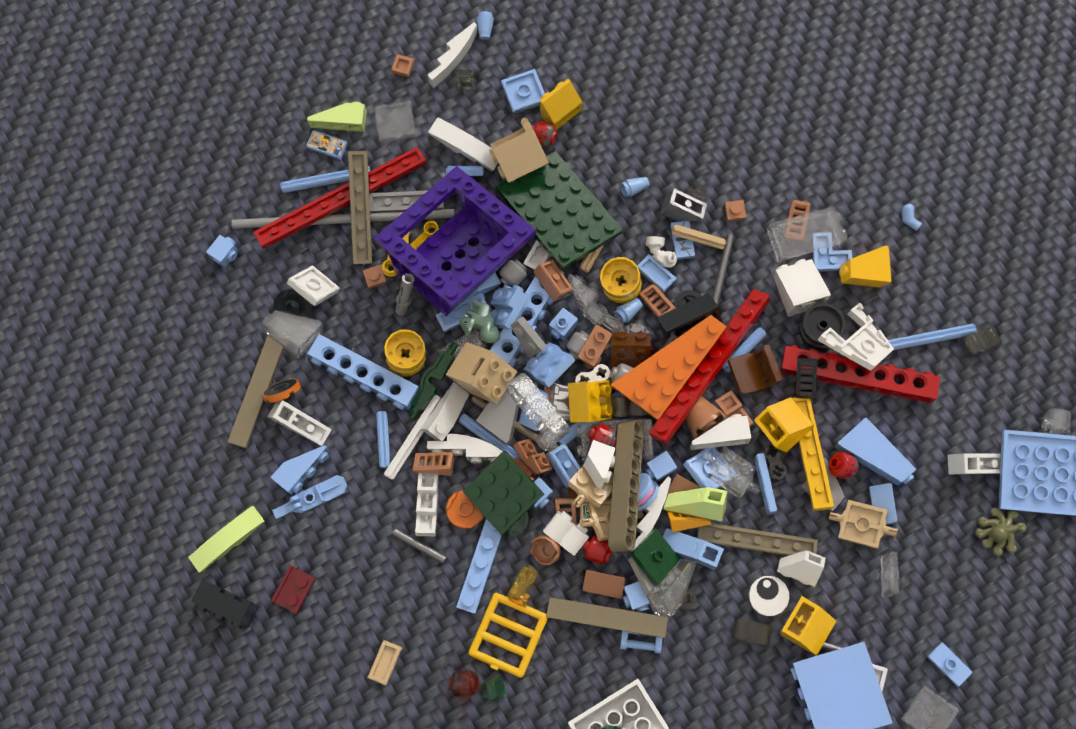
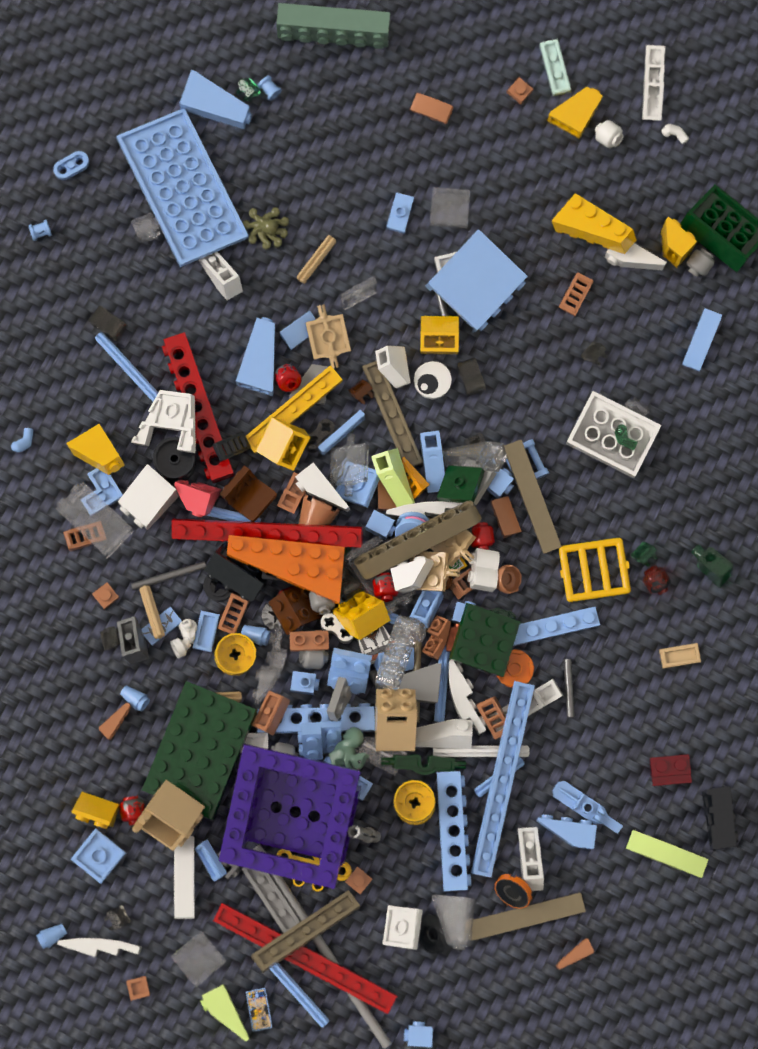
camera: 130 degrees left, 5 degrees up
(198, 414) = (581, 951): none -> nougat slope
(379, 438) = (502, 779): none -> light blue plate
(524, 580) = (550, 580): clear yellow leg -> none
(622, 155) = (112, 724): none -> nougat slope
(777, 325) = (197, 497): none -> coral slope
(796, 524) = (361, 389): none -> reddish brown tile
(944, 559) = (316, 259): none -> tan axle

